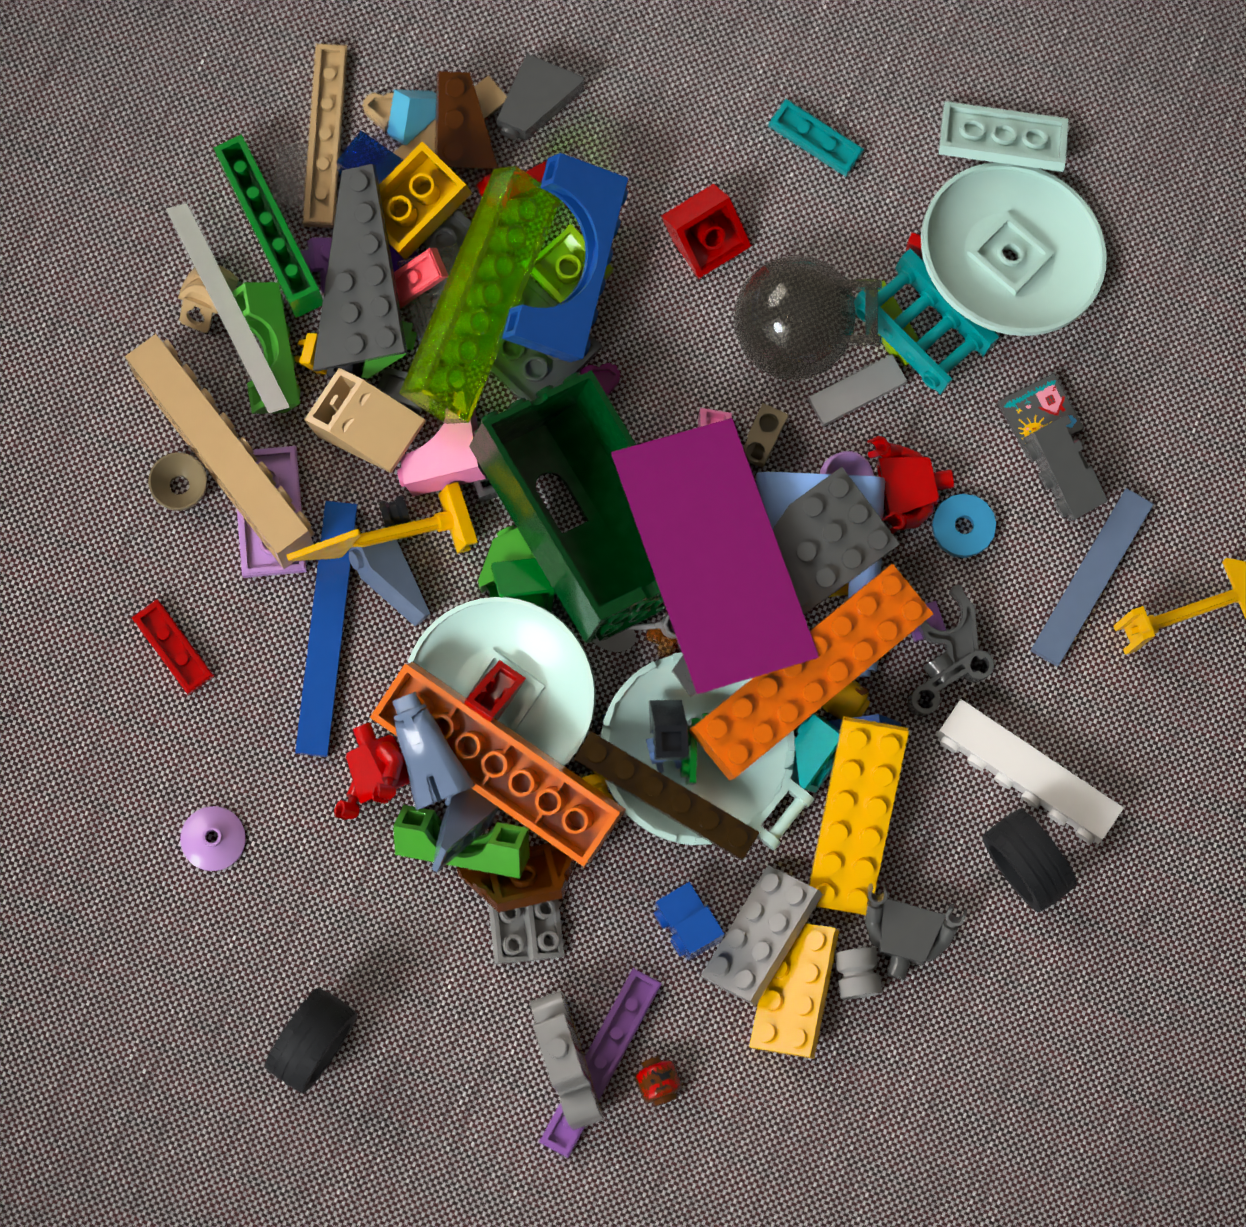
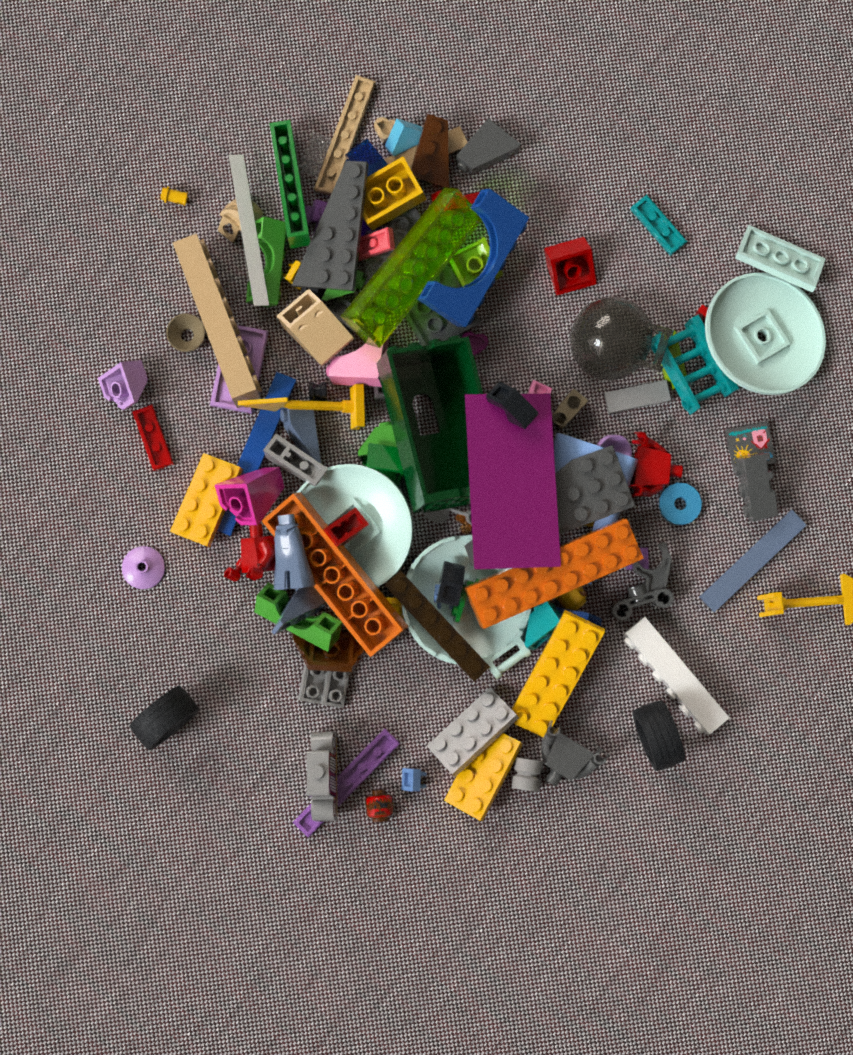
camera: 15 degrees right, 5 degrees up
(102, 290) = (174, 196): none -> yellow pin
(108, 580) = (124, 383): none -> lavender slope
(277, 714) = (200, 509): none -> yellow plate
(341, 686) = (251, 494): none -> dark pink slope
(390, 619) = (294, 460): none -> light grey slope
(688, 448) = (516, 407): none -> black slope
(689, 921) = (428, 709): blue brick -> none
(694, 1029) = (411, 779): none -> medium blue tile

